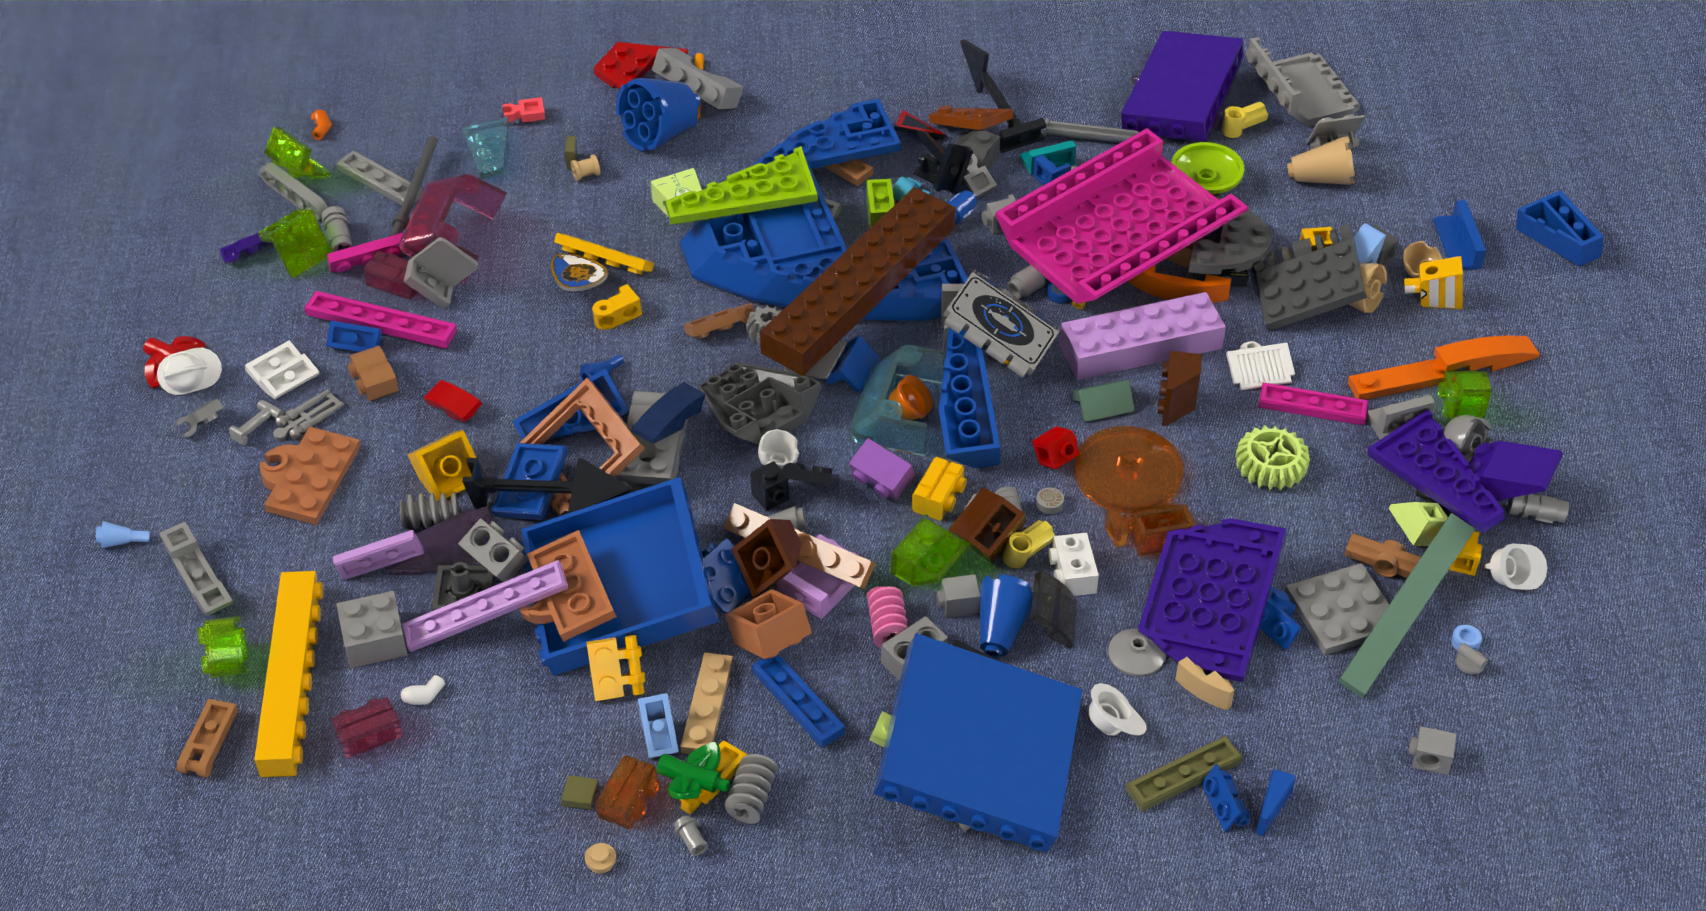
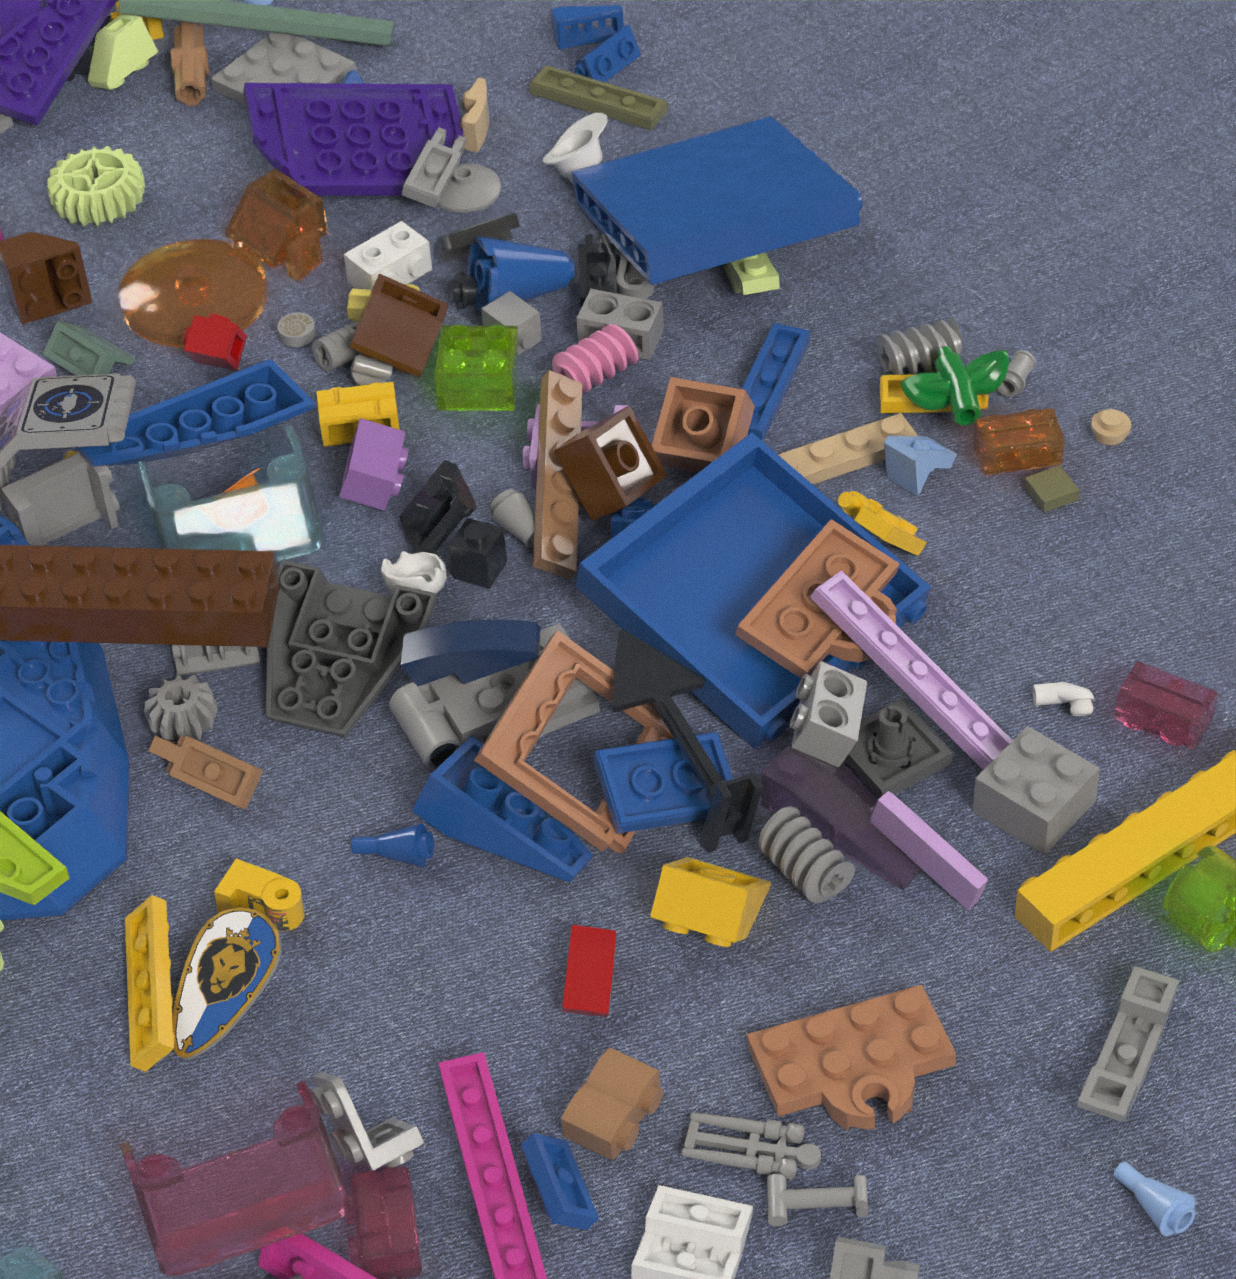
camera: 120 degrees left, 0 degrees up
(1146, 620) = (433, 169): none -> light grey hinge

